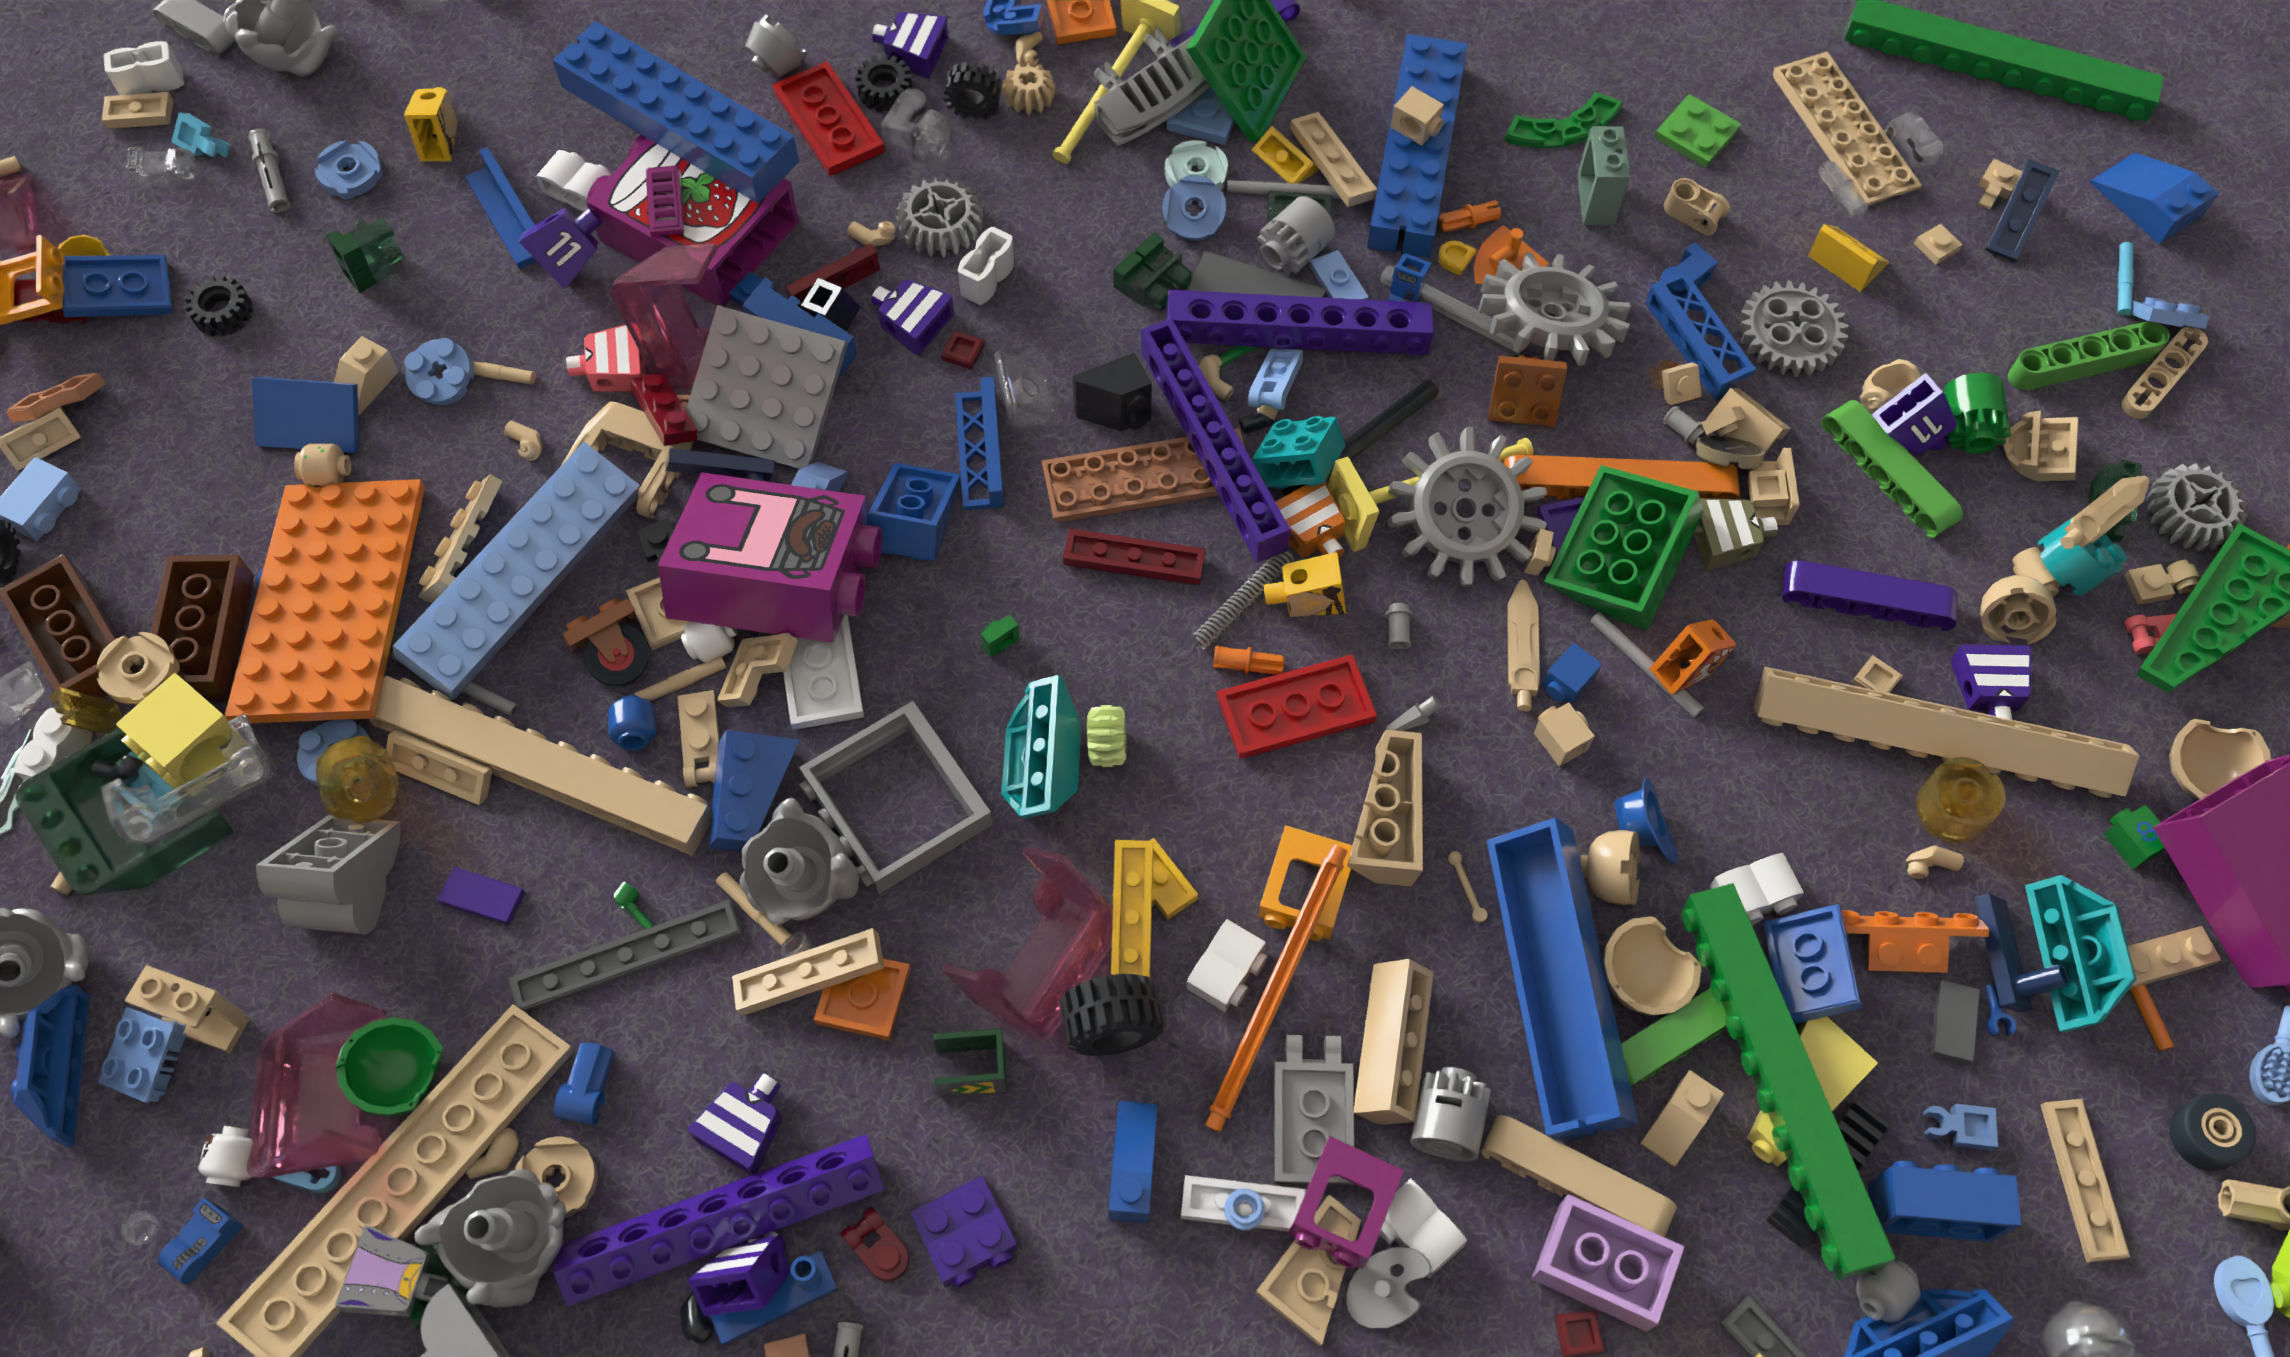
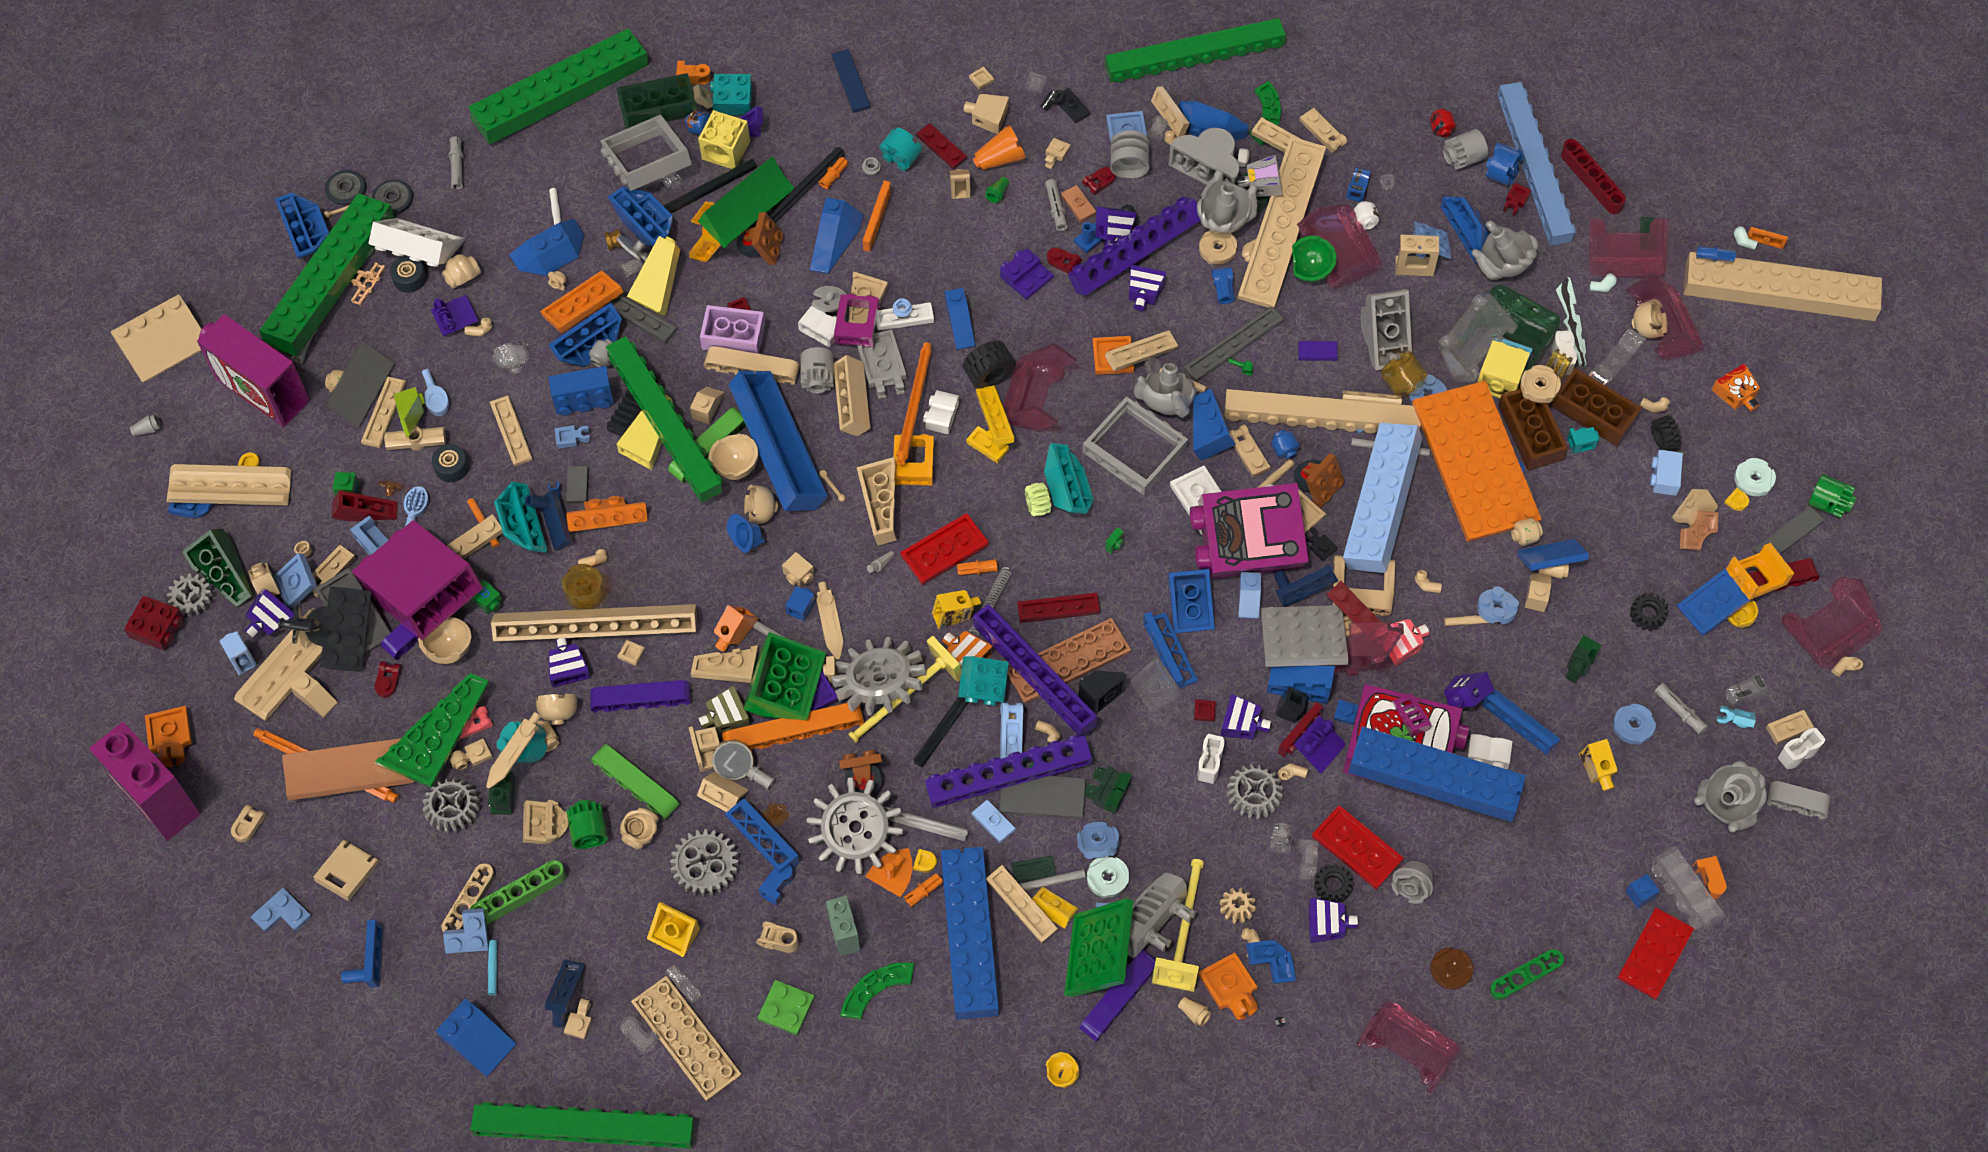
camera: 165 degrees right, 0 degrees up
(126, 771) = (1531, 348): black arm -> none
(130, 591) = (1582, 439): none -> teal brick
(449, 551) = (1427, 510): tan wing -> none
(753, 659) = (1238, 480): tan plate -> none
(806, 254) = (1320, 743): none -> dark purple hinge
(971, 1041) = (1047, 326): dark green piece -> none
(976, 79) = (1270, 883): black tyre -> none
(1296, 235) = (1028, 833): light grey gear -> none
(1399, 625) = (900, 608): light grey pin -> none
(1407, 283) = (948, 813): blue leg -> none
(1417, 116) = (972, 922): tan brick -> none
(1681, 383) = (767, 802): tan plate -> none
(1702, 599) = (730, 666): none -> tan wing
(1724, 422) = (739, 778): tan plate -> none
(1764, 886) = (684, 518): white brick -> none
(1813, 963) = (653, 480): tile -> none
(1918, 417) = (617, 806): dark purple torso -> none
(1938, 244) = (616, 959): tan plate -> none

